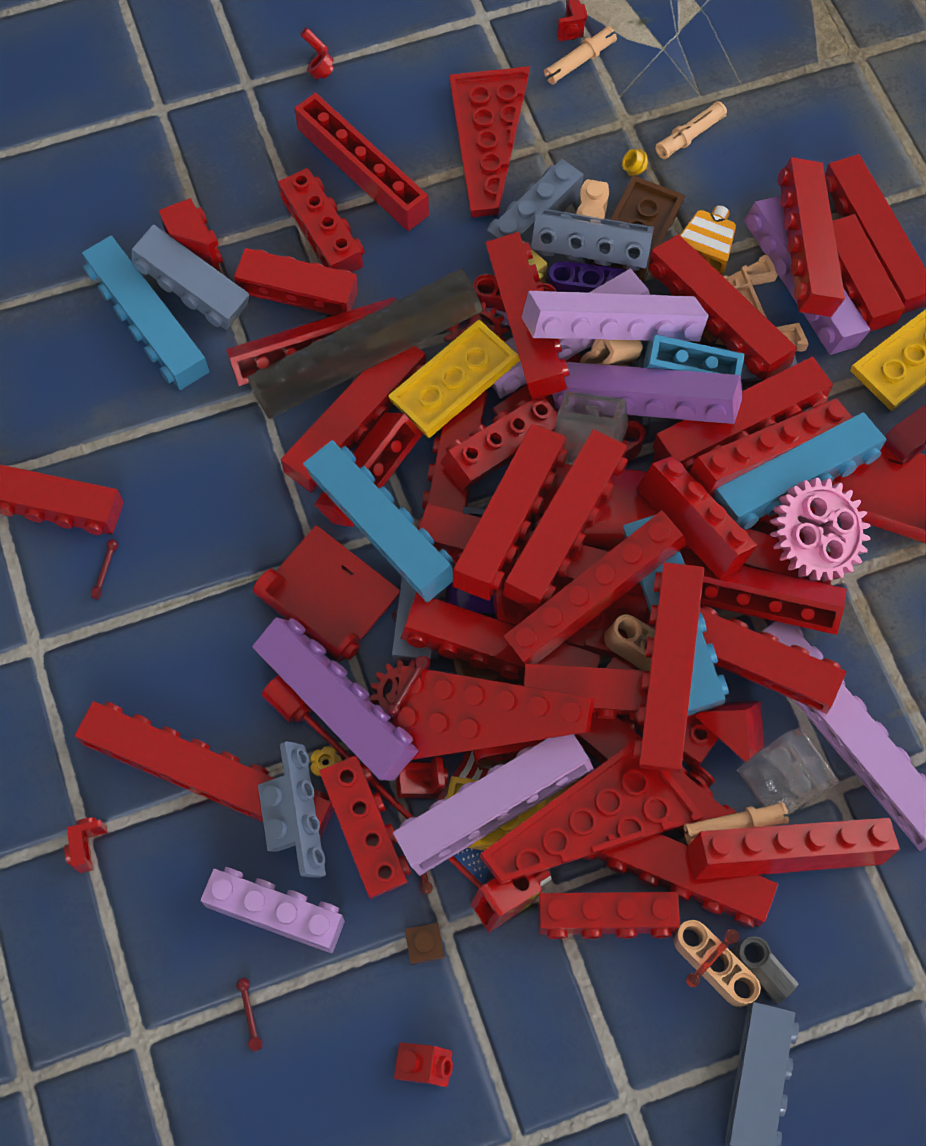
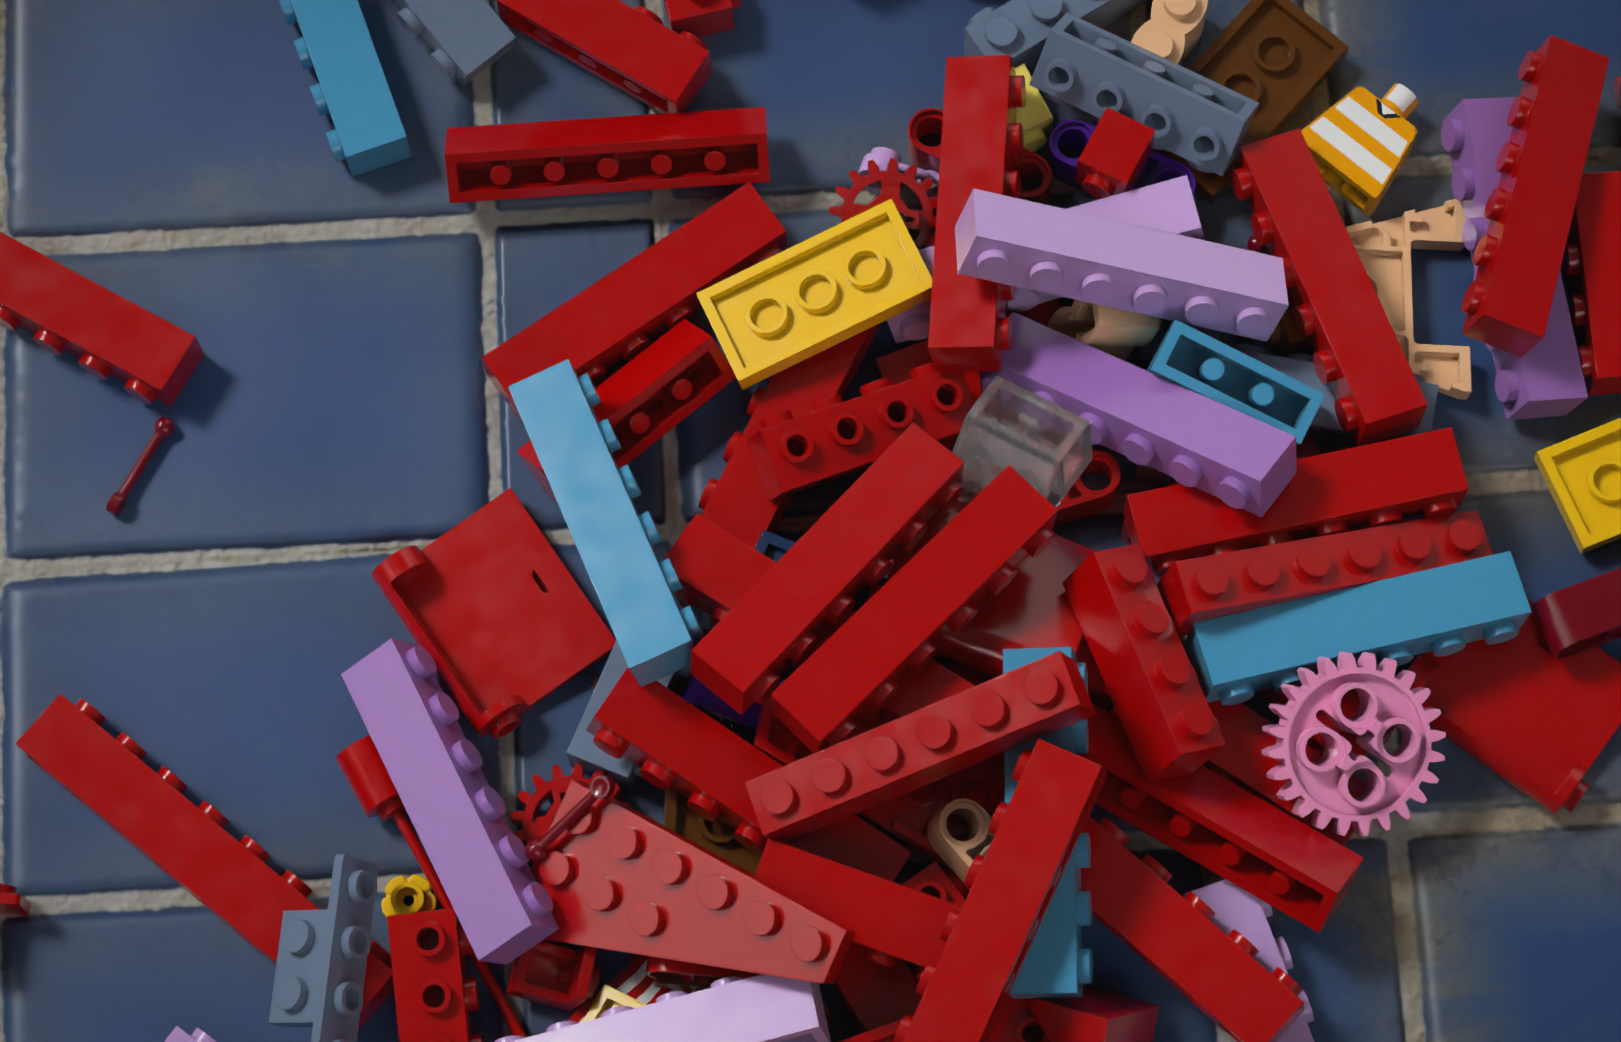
camera: 20 degrees right, 5 degrees up
(365, 343) = (684, 189): clear smoke brick -> none
(588, 269) = (1114, 155): none -> red brick

